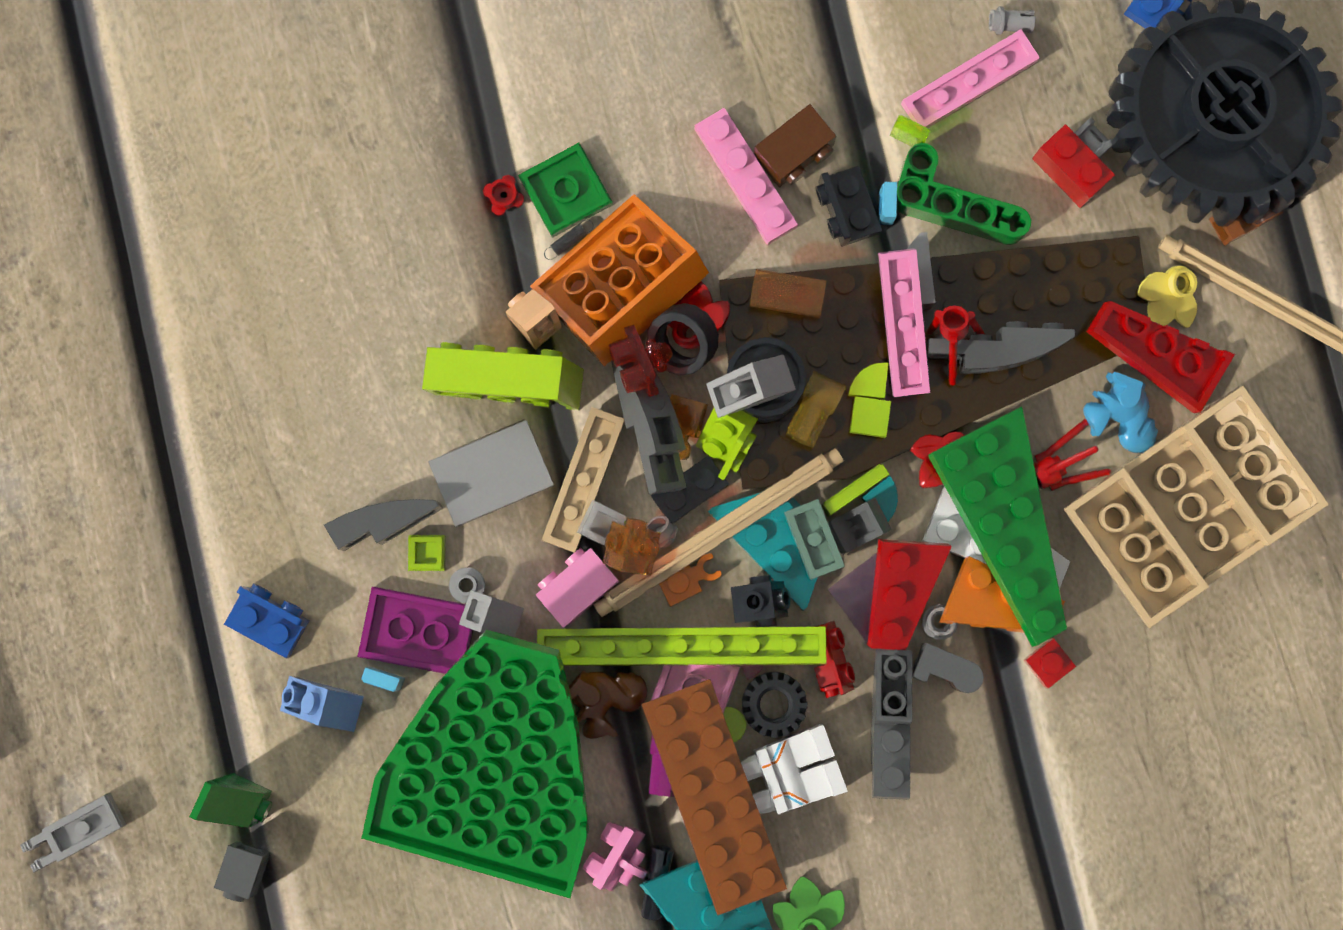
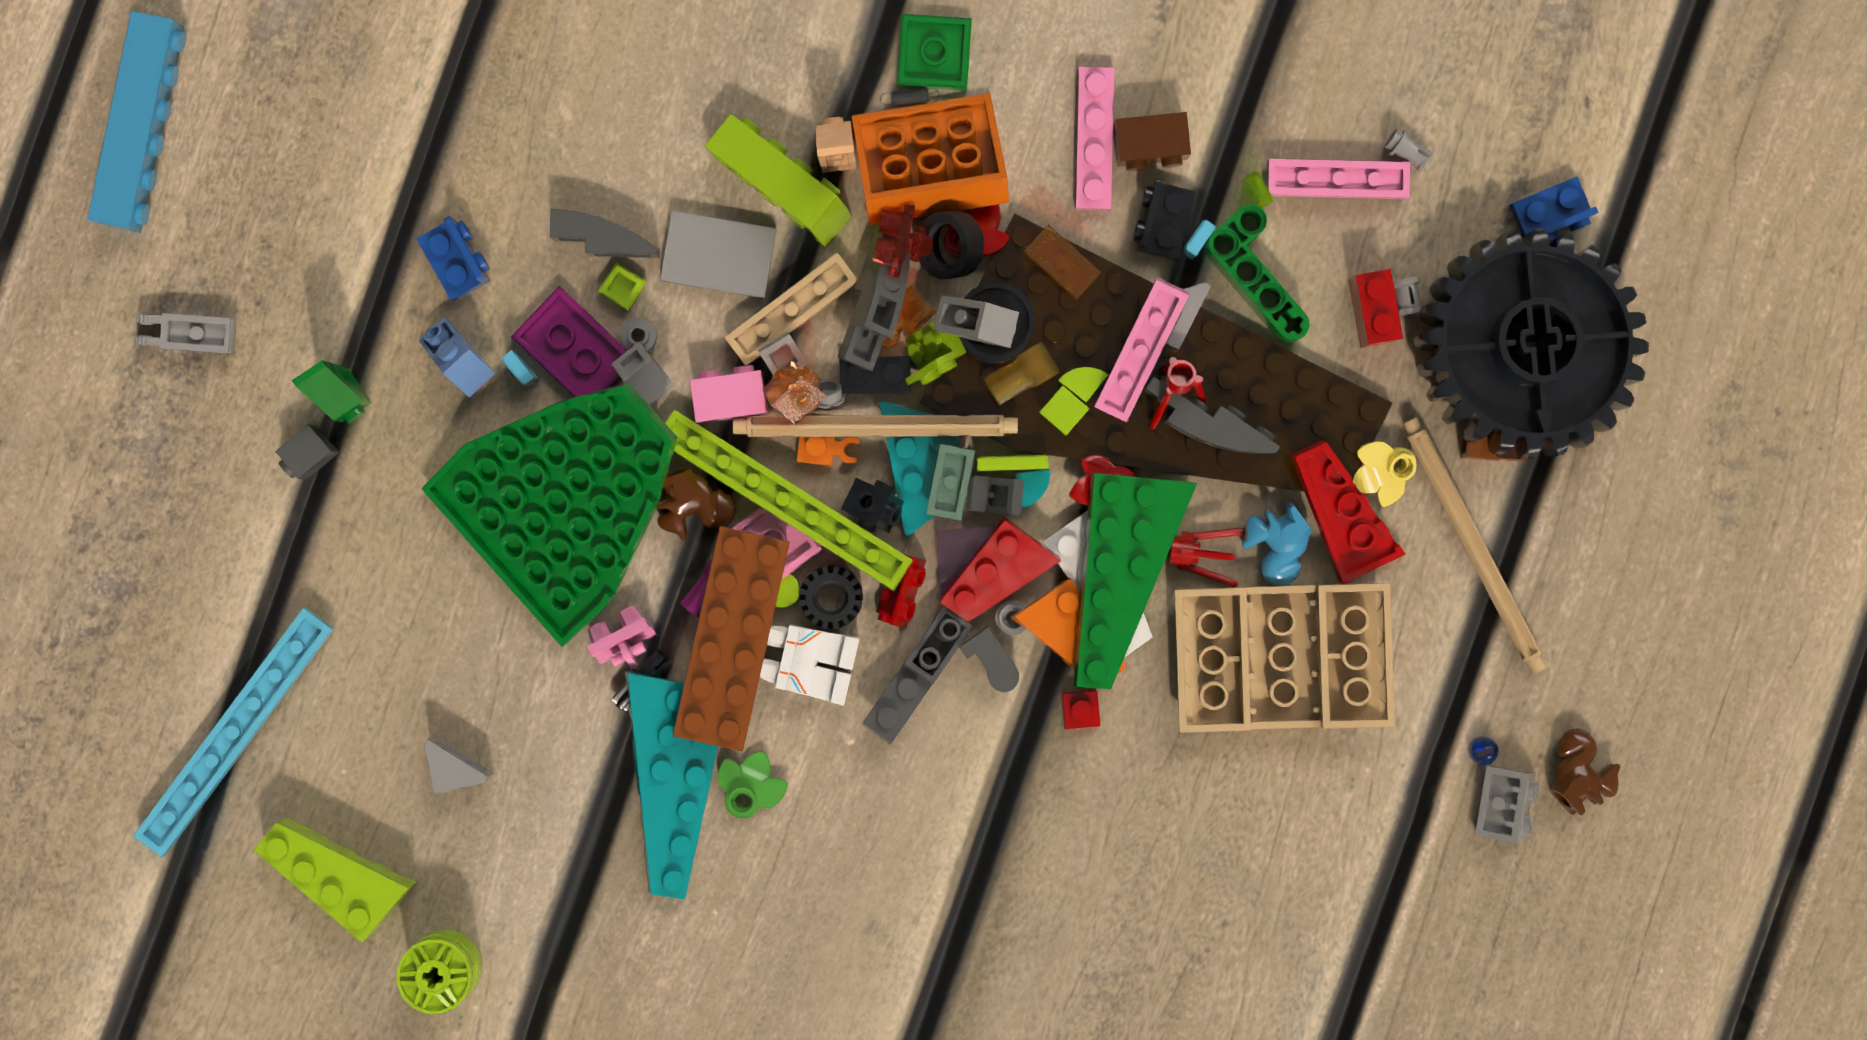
camera: 30 degrees right, 5 degrees up
(506, 185) = (871, 15): red plate -> none

